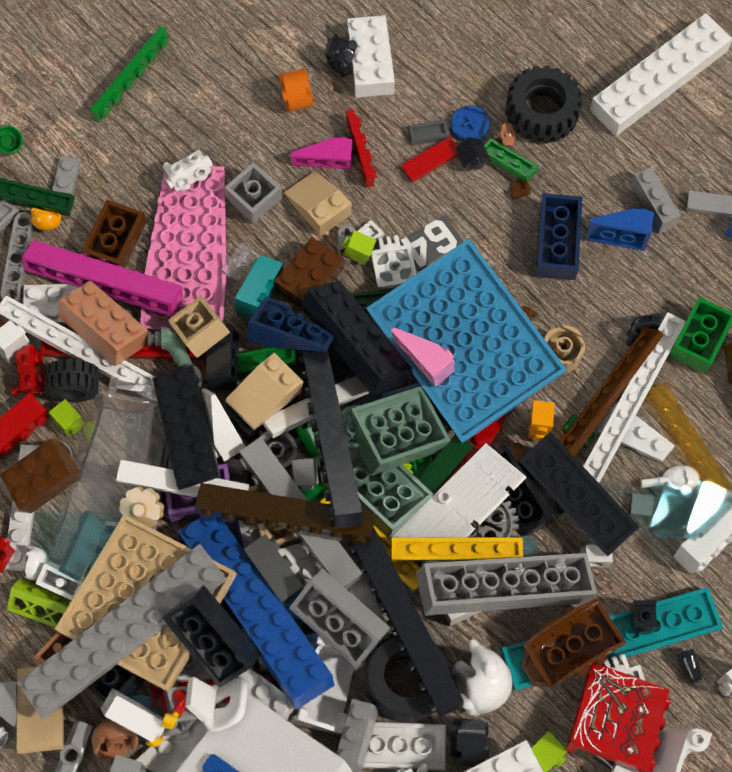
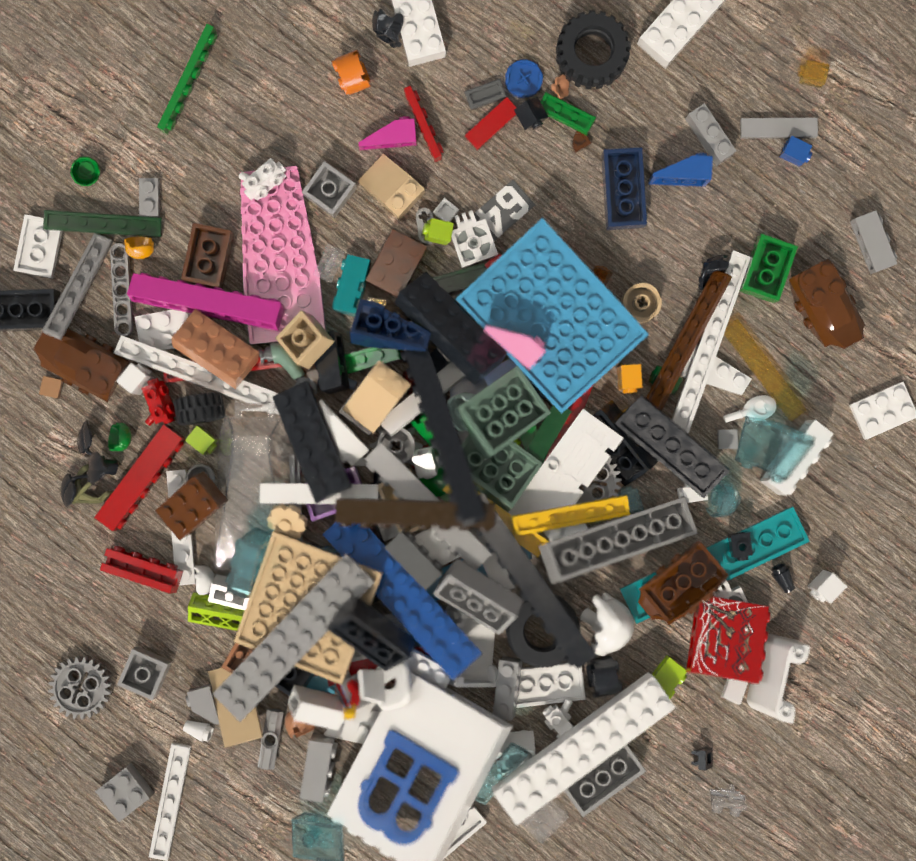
camera: 10 degrees left, 20 degrees up
(629, 564) = (723, 500): none -> clear light blue cylinder

